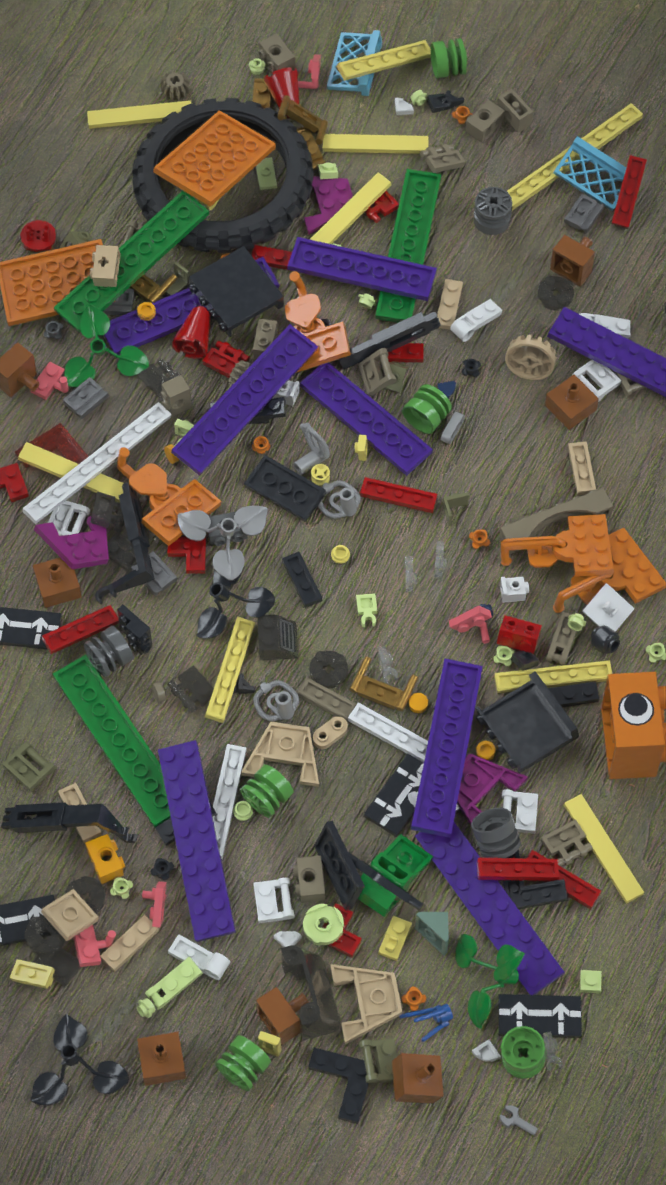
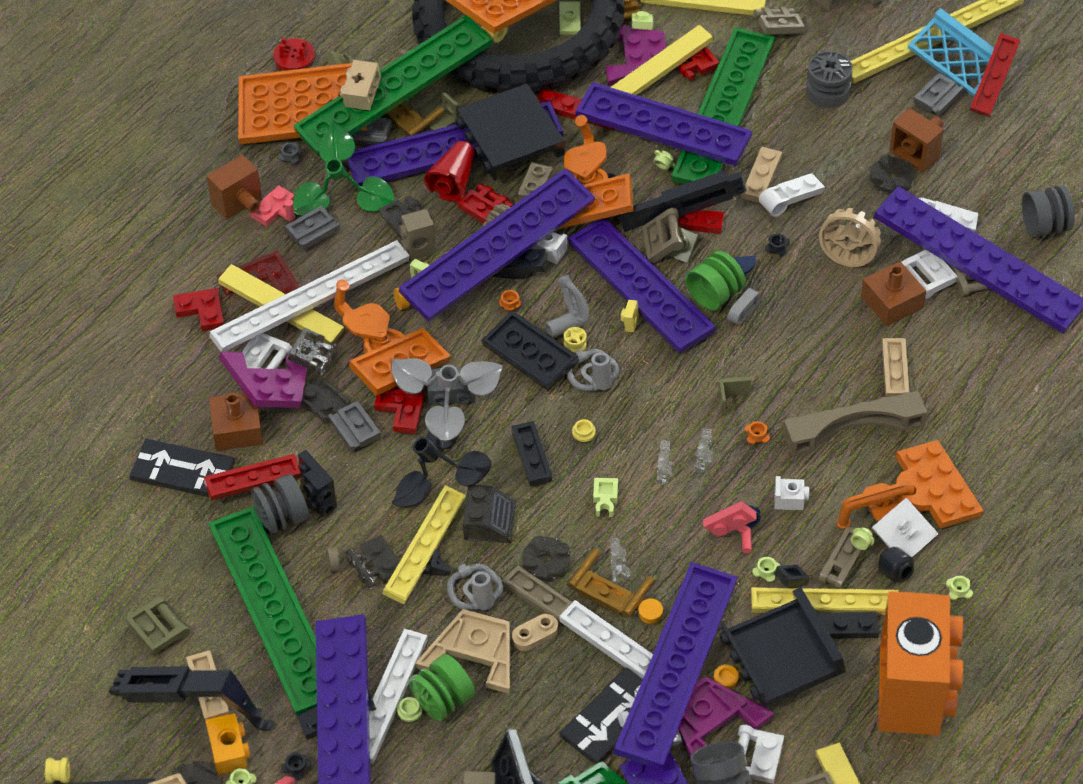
camera: 10 degrees right, 10 degrees down
(139, 538) = (343, 384): black hinge -> none
(146, 311) = (401, 142): light orange tile -> none
(398, 495) = (666, 373): red plate -> none
(519, 634) = (788, 545): red brick -> none
(584, 545) = (885, 451): orange plate -> none

